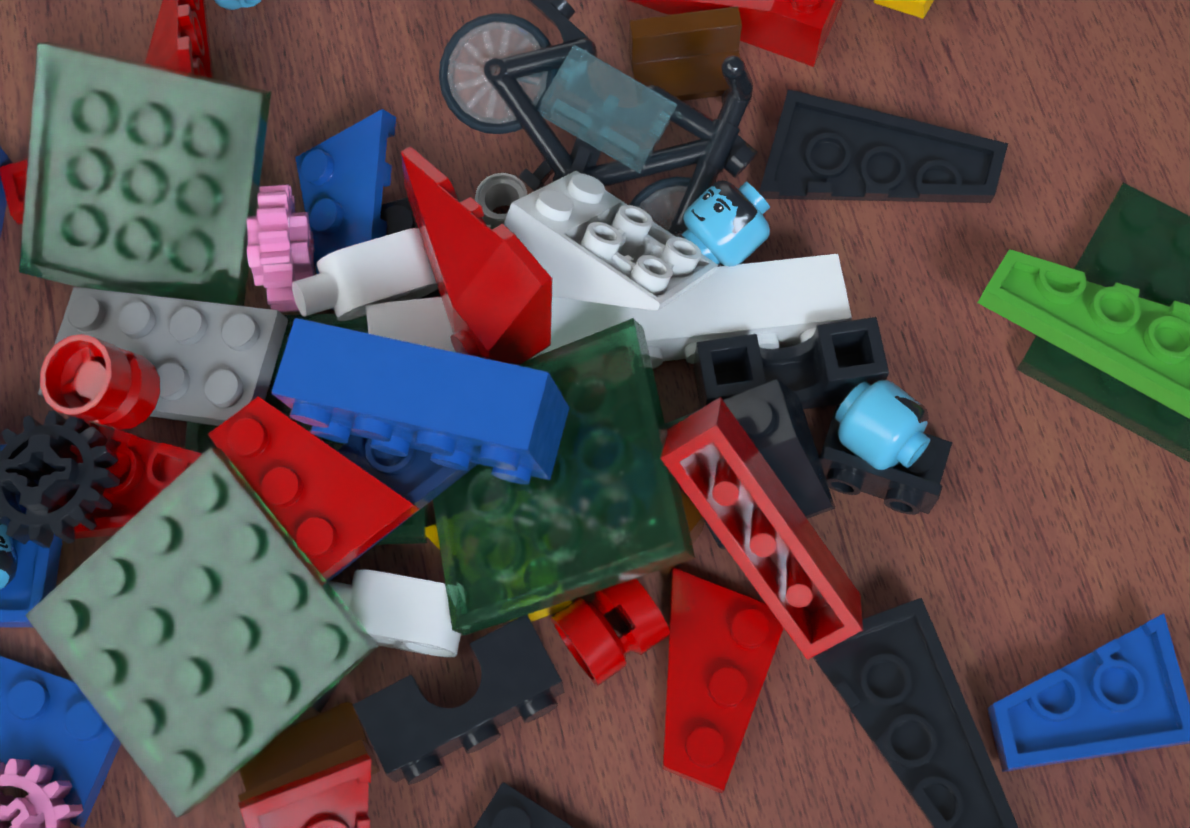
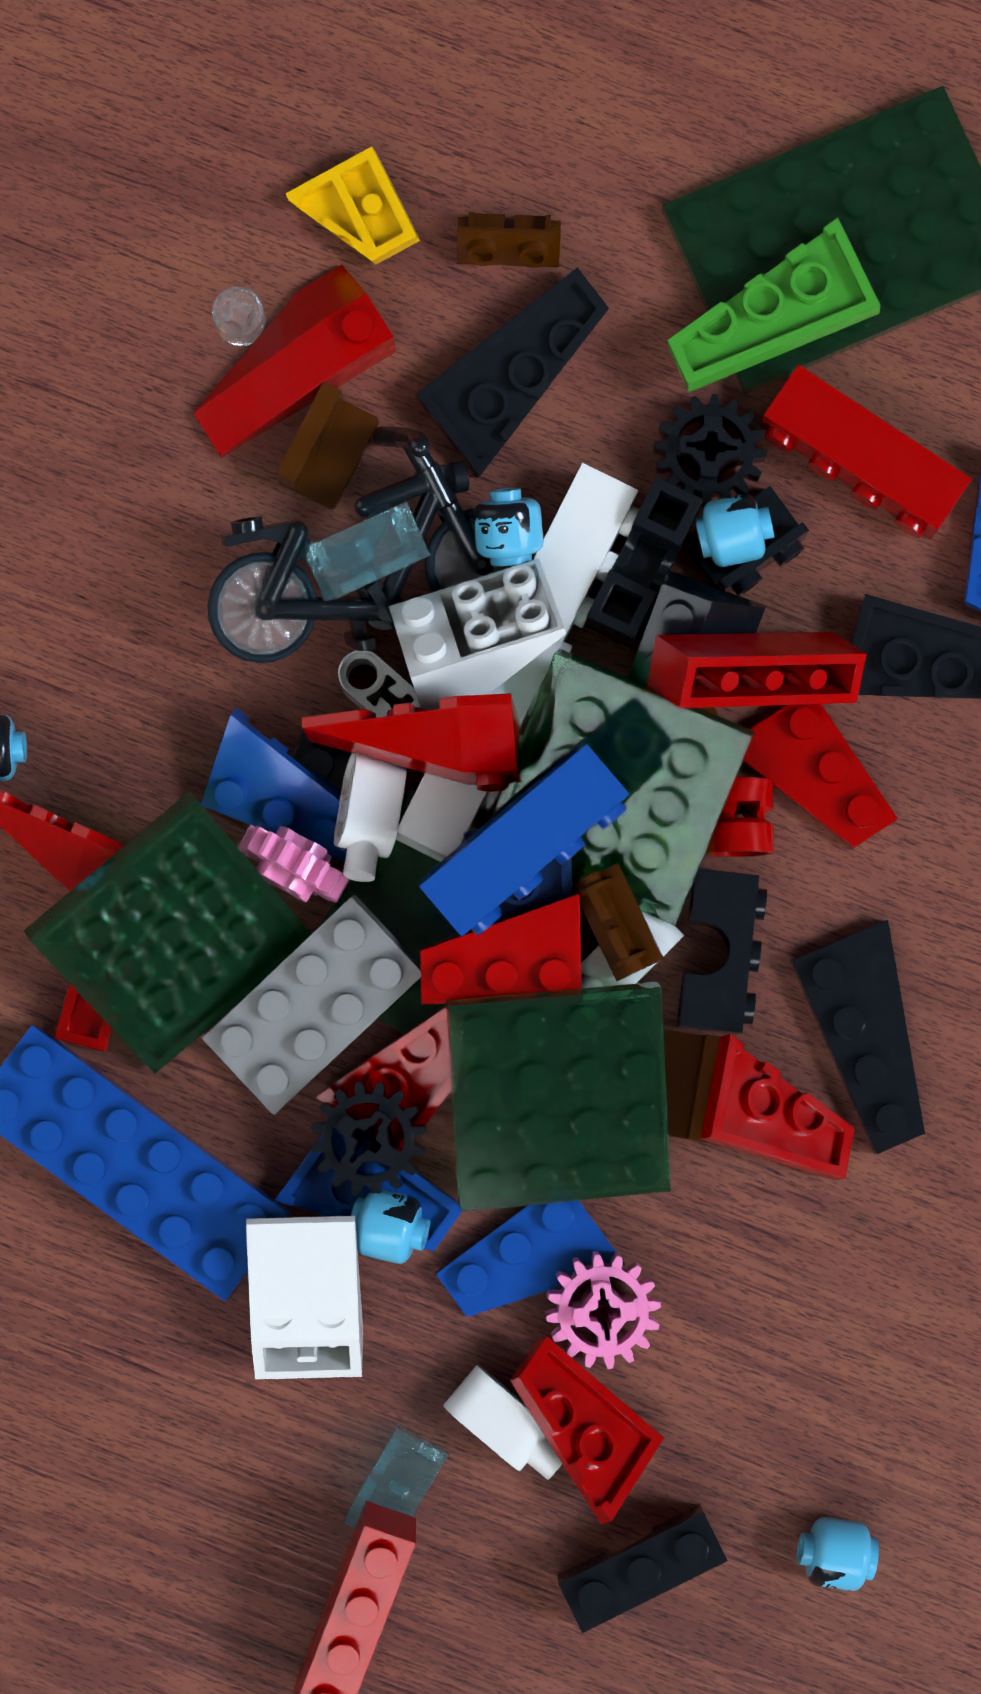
camera: 55 degrees left, 15 degrees up
(99, 382) = (329, 1057): red wheel -> none
(416, 568) = (617, 922): none -> reddish brown hinge
(940, 357) = (730, 451): none -> black gear
(980, 86) = (530, 243): none -> reddish brown hinge
(1054, 508) = (864, 453): none -> red brick

